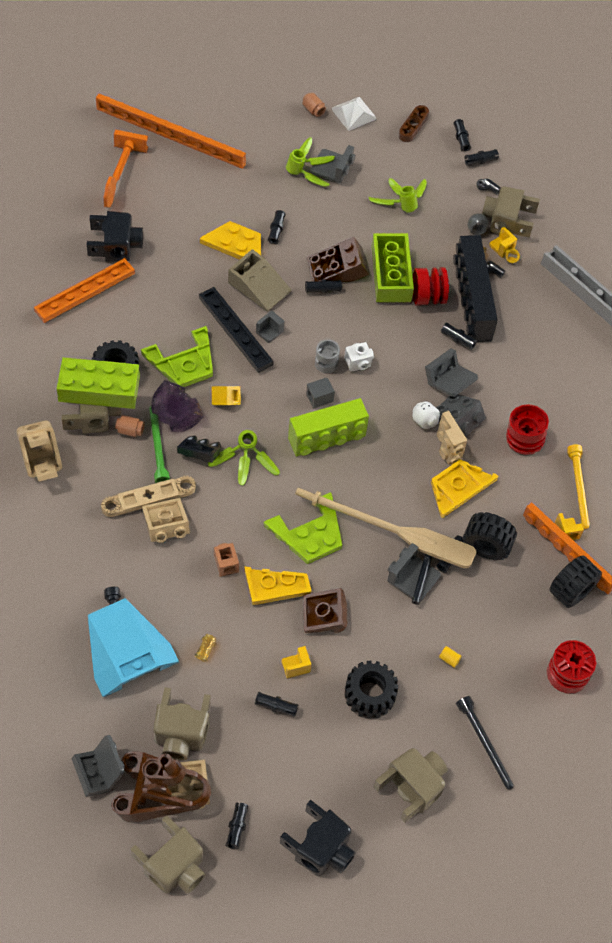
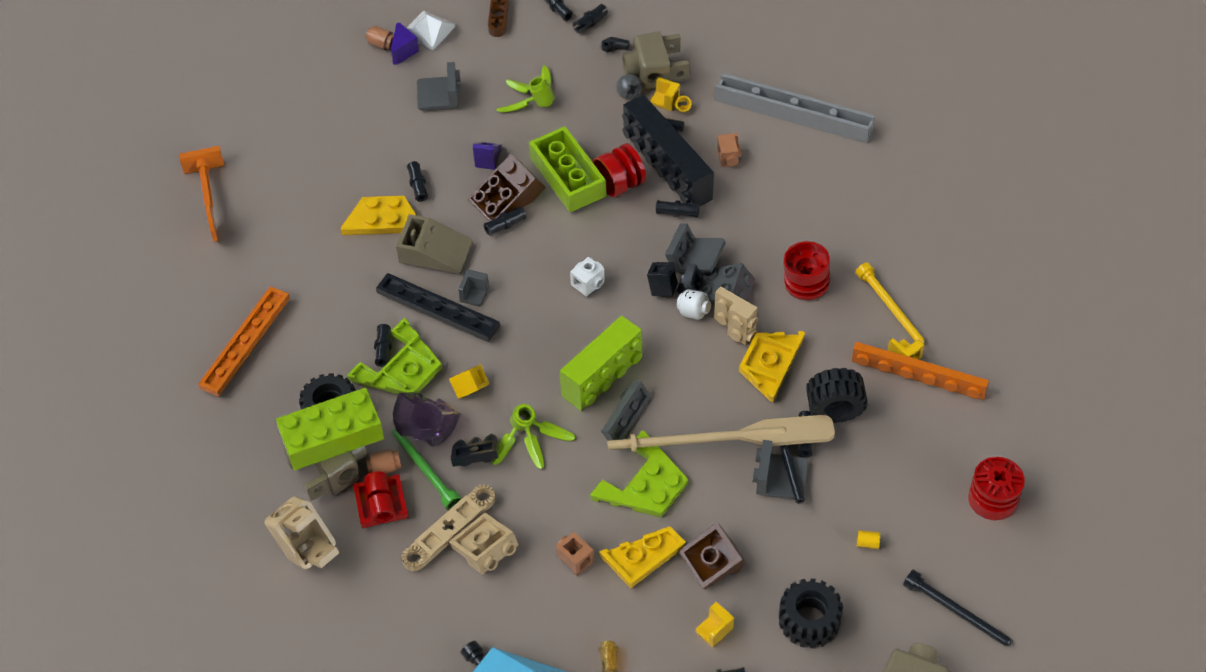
camera: 20 degrees left, 5 degrees down
(112, 452) = (380, 499): none -> red plate
(118, 236) = (251, 265): black piece -> none
(171, 131) = (239, 130): orange plate -> none
(179, 339) = (382, 345): none -> black pin
(298, 158) = (400, 100): lime plant -> none
(320, 392) = (569, 332): dark grey panel -> none
(326, 117) = (403, 44): none -> dark purple slope
(326, 473) = (627, 411): none -> dark grey hinge
(327, 356) = (554, 290): light grey wheel -> none
(339, 228) = (486, 154): none -> dark purple slope
(413, 384) = (662, 279): none -> black brick
(434, 395) = (690, 279): none -> black bracket
(526, 307) = (728, 149): none -> nougat brick
(575, 581) = (949, 399): black tyre -> none

